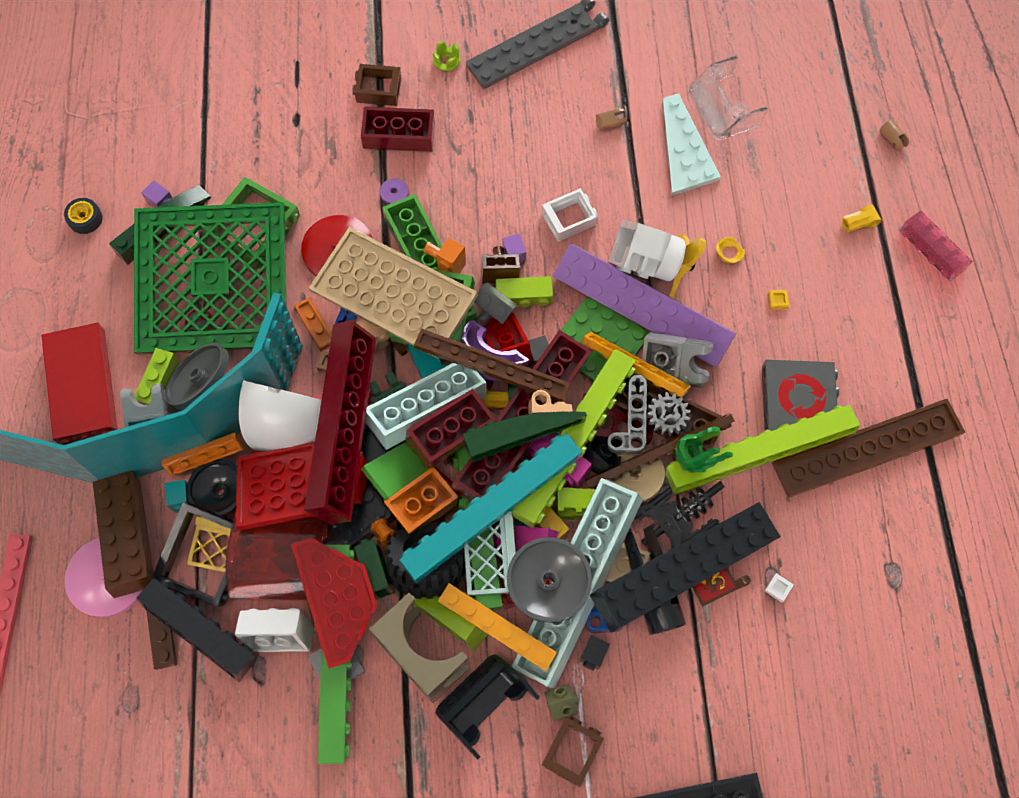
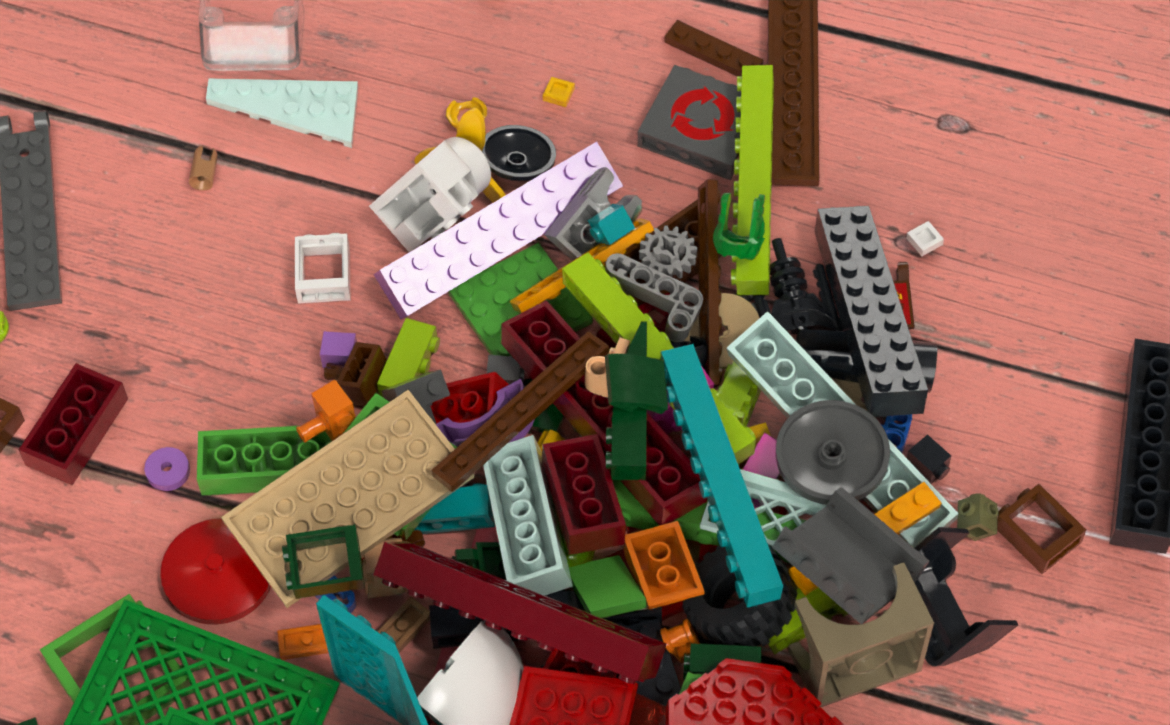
camera: 65 degrees left, 10 degrees down
(348, 309) = (319, 538): none -> dark green window
(459, 617) = (850, 555): none -> dark grey panel
(530, 425) = (636, 382): none -> dark green slope
(670, 367) = (610, 224): none -> teal brick
(717, 288) = (518, 152): none -> black dish
(866, 385) = (710, 48): none -> reddish brown plate

